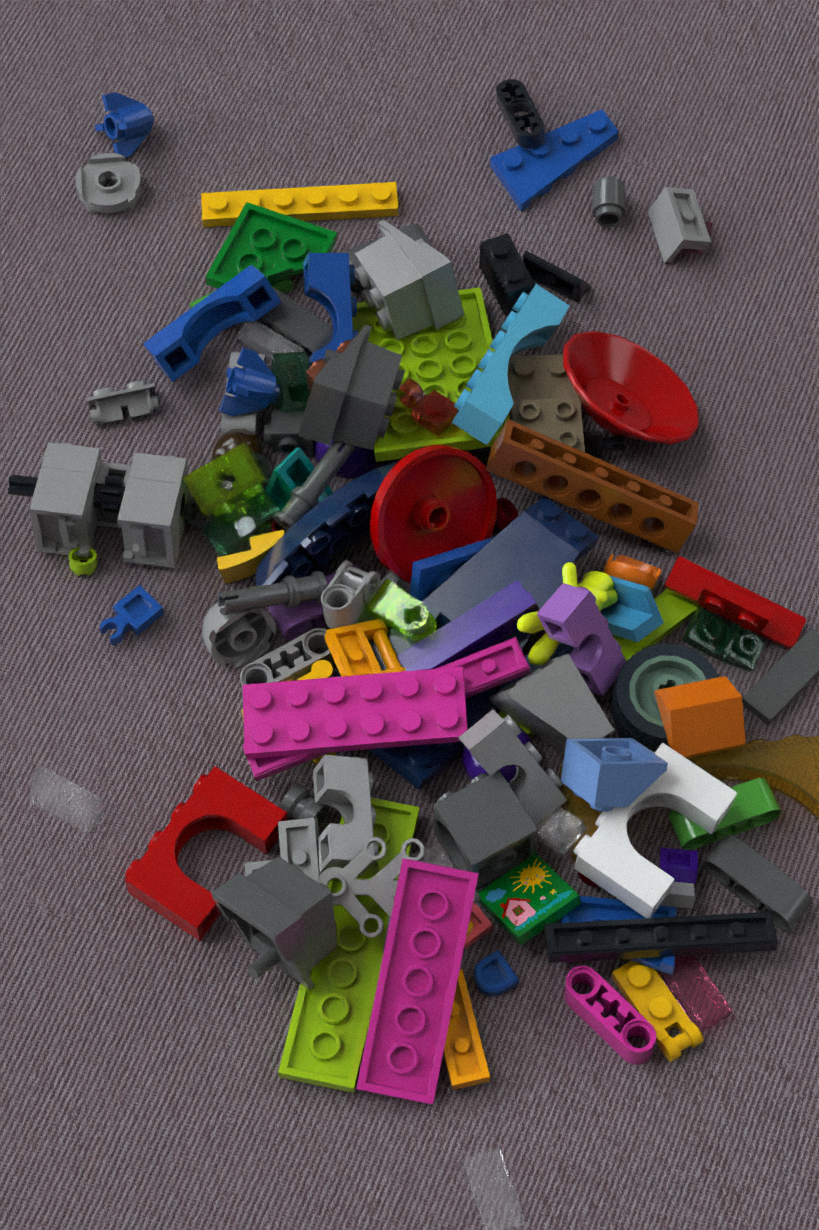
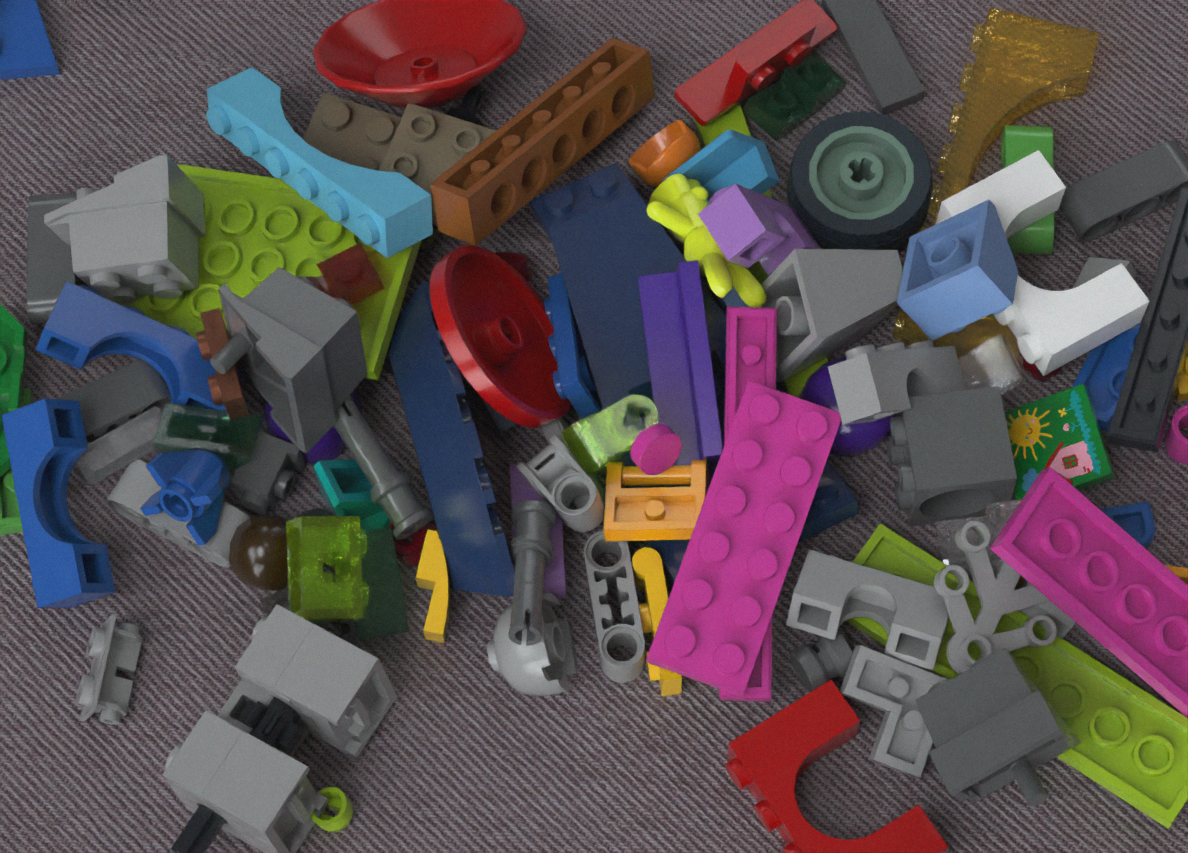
camera: 65 degrees left, 5 degrees up
(133, 612) = (444, 770): blue plate -> none
(397, 638) = (656, 449): none -> dark pink tile
(504, 271) = (159, 123): black brick -> none
(555, 277) = (187, 73): black slope -> none
(679, 864) = (1072, 265): dark purple tile -> none
(702, 716) = (915, 146): orange slope -> none

